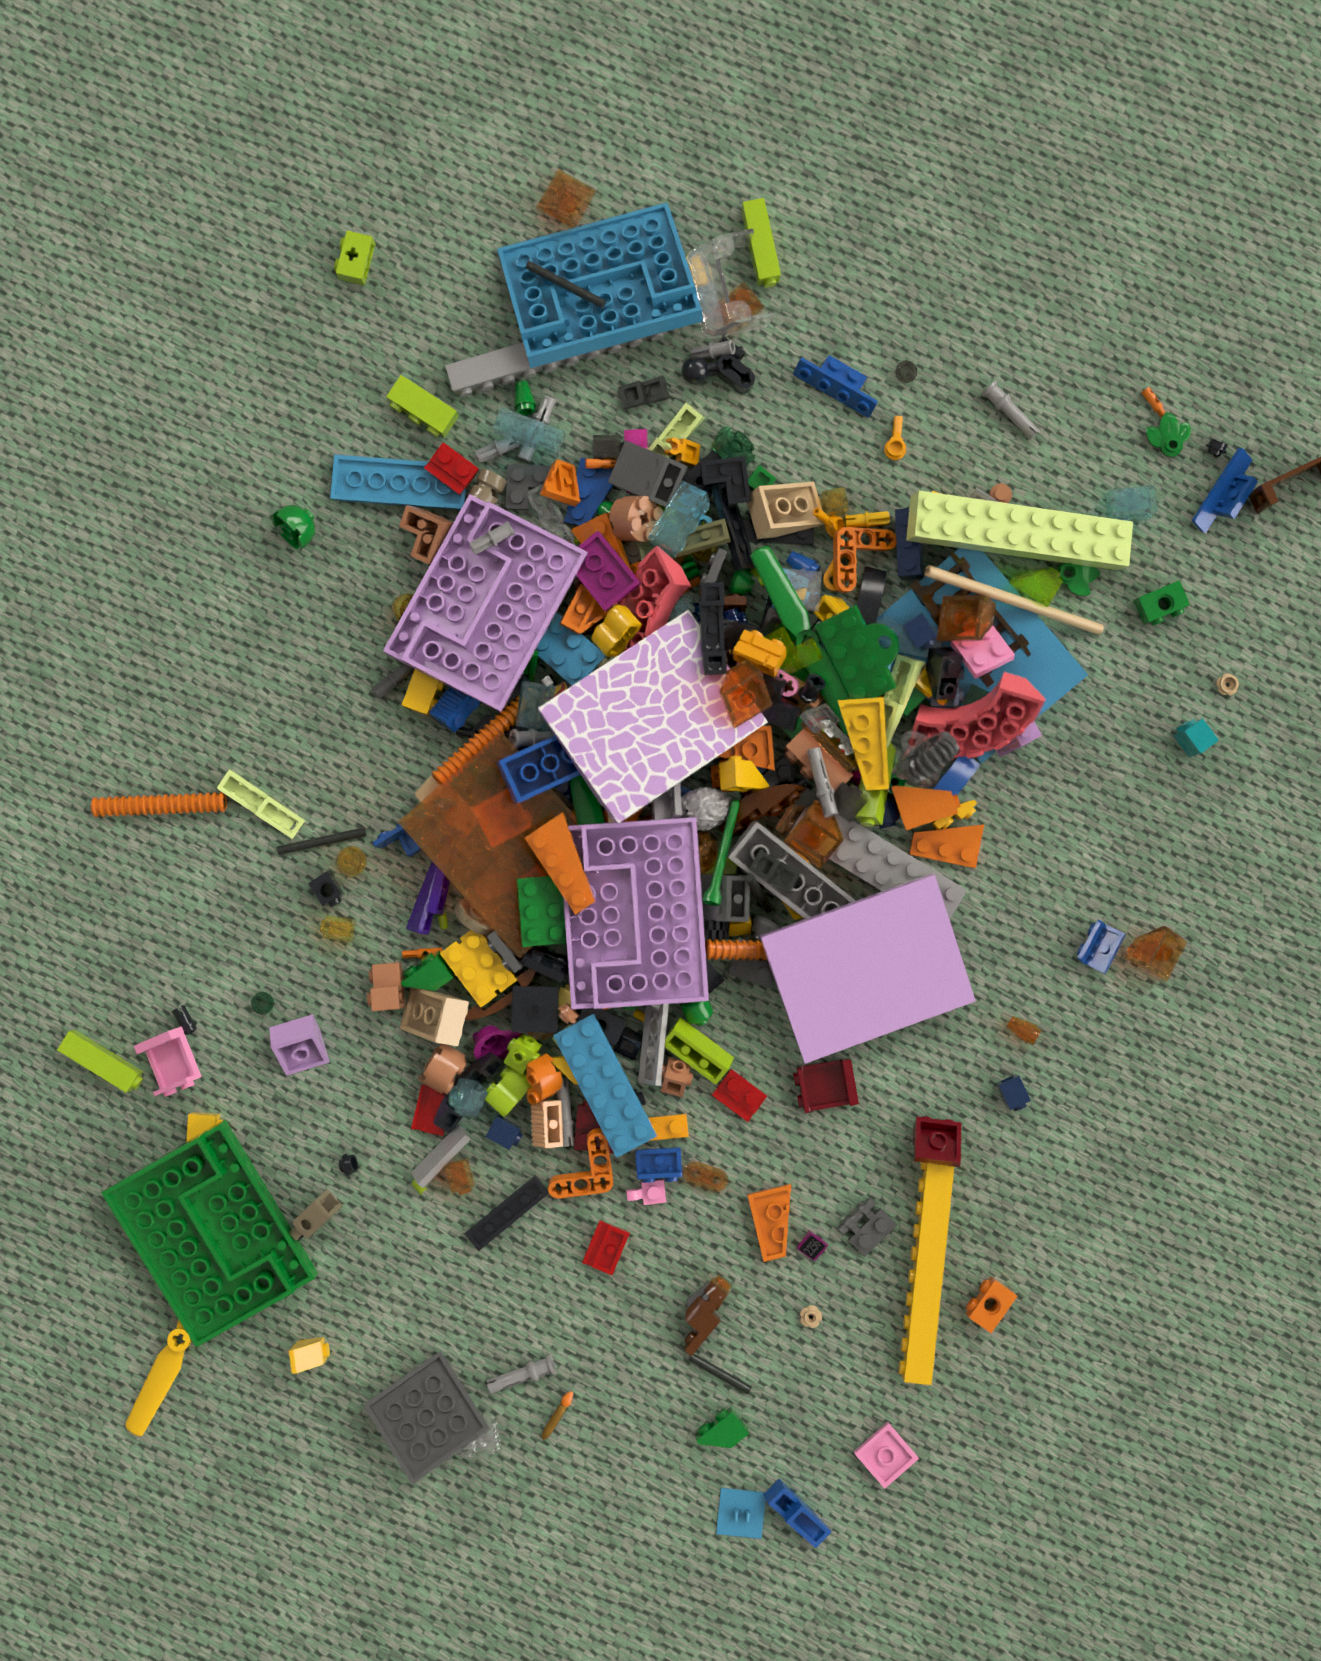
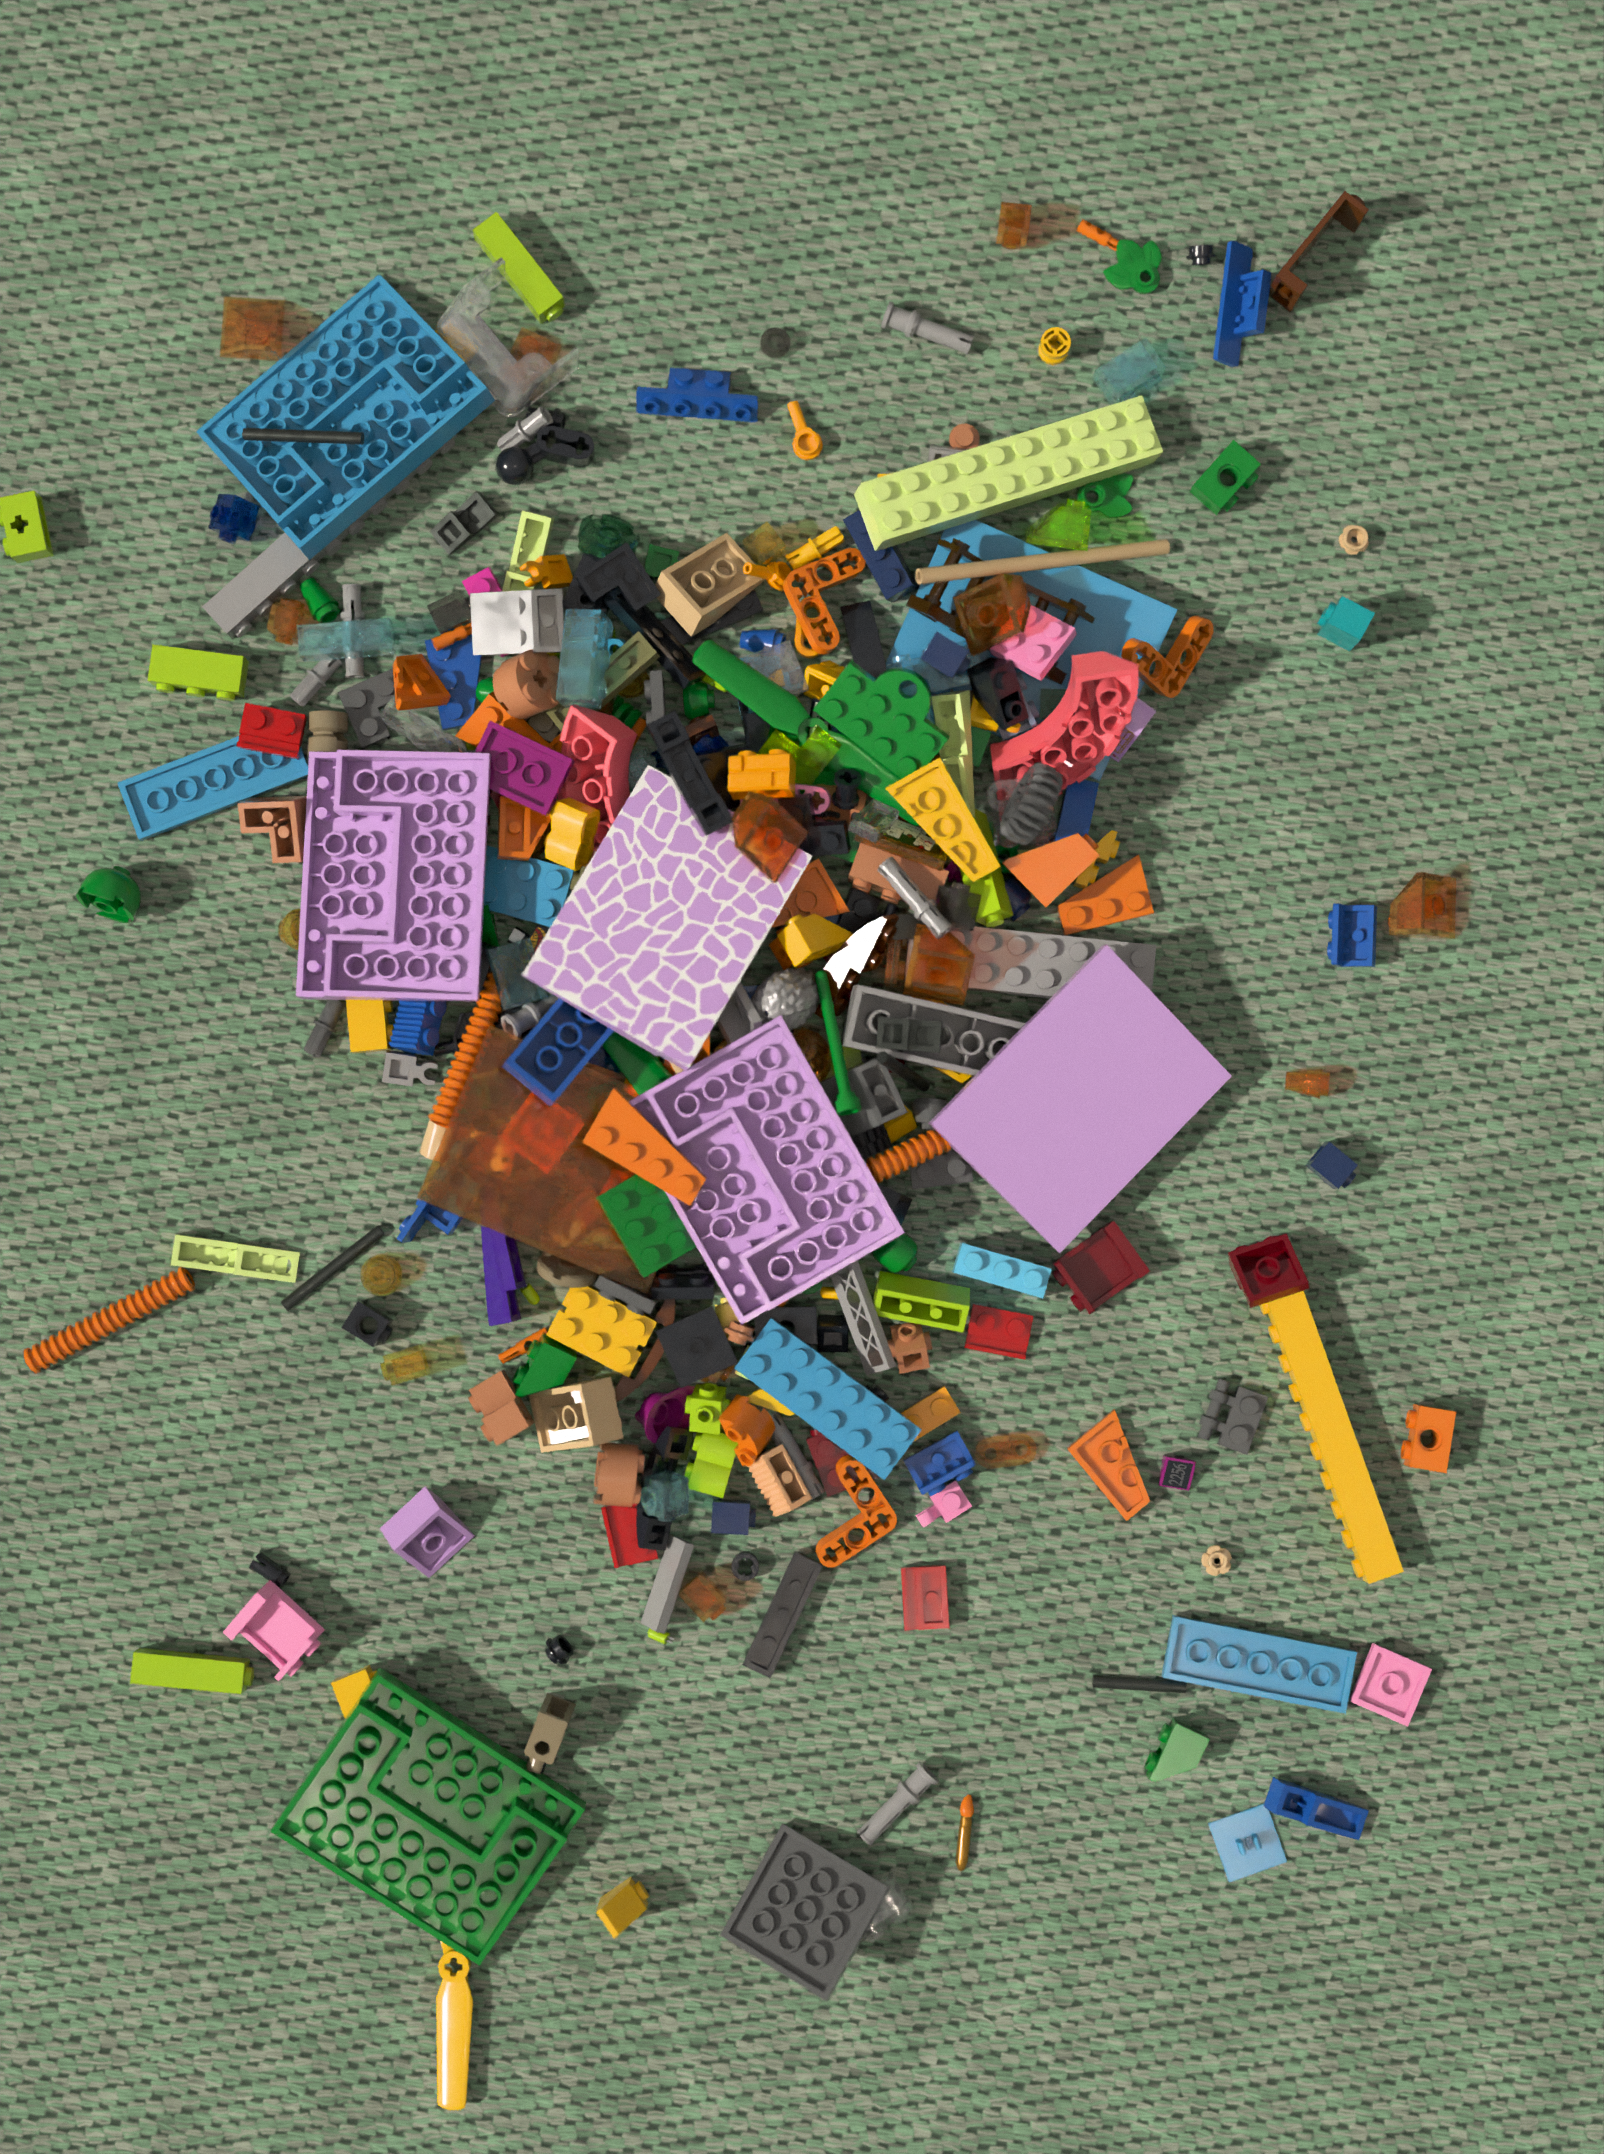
camera: 25 degrees left, 0 degrees up
(255, 1003) = (346, 1504): clear green plate -> none
(430, 732) = (402, 1069): none -> light grey plate
(491, 538) = (363, 792): light grey axle -> none
(492, 1164) = (754, 1567): none -> black bush
(494, 317) = (233, 518): none -> clear blue brick
(495, 399) = (284, 619): none -> clear orange head
(701, 1312) = (1079, 1616): reddish brown plate -> none
(760, 1056) = (1001, 1270): none -> medium azure brick
(805, 1399) = (1259, 1664): none -> dark azure plate
(1057, 716) = (1165, 667): none -> orange beam
(1086, 464) = (1053, 352): none -> yellow wheel
(1101, 368) = (1013, 225): none -> clear orange brick

